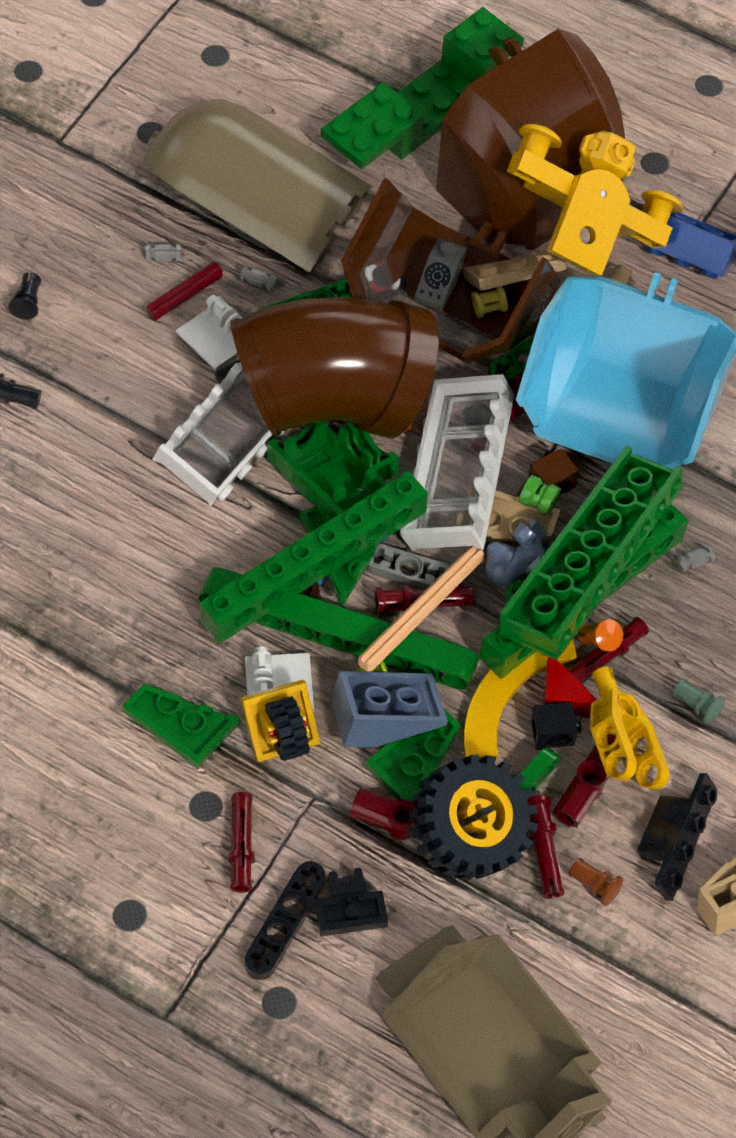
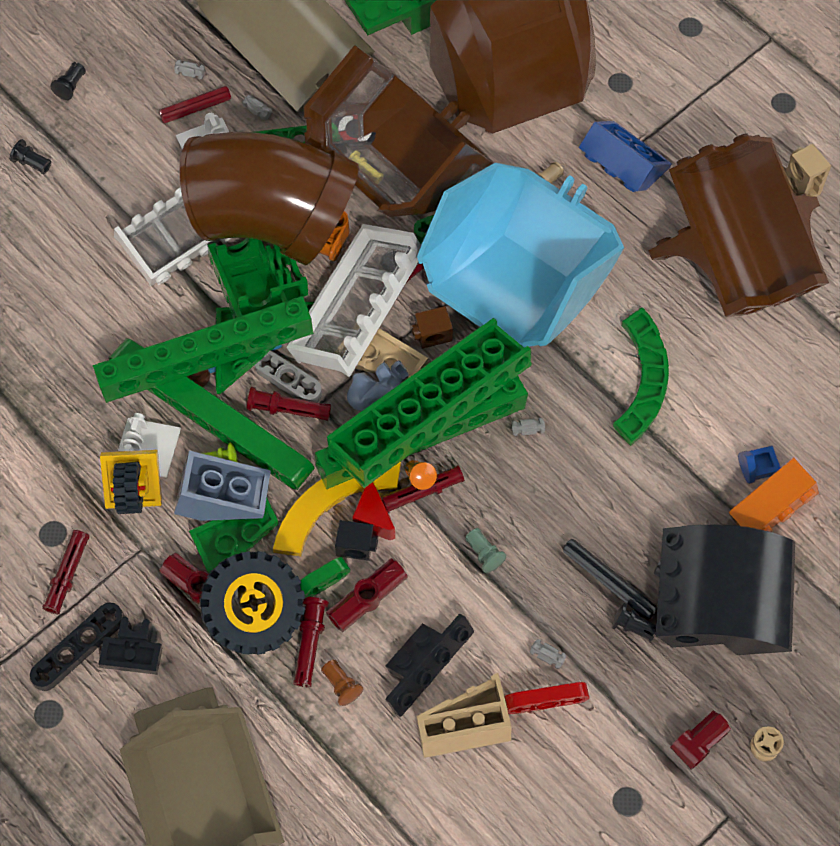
camera: 20 degrees right, 5 degrees up
(182, 726) = (56, 462): green wing -> none
(420, 609) = (276, 414): light nougat axle -> none
(440, 274) = (399, 137): dark grey slope -> none
(489, 301) = (429, 167): light yellow bush -> none
(508, 271) = (443, 146): tan wing -> none
(539, 495) = (411, 342): bright green wheel -> none
(593, 197) = (536, 100): yellow piece -> none
(622, 715) = (412, 546): yellow piece -> none

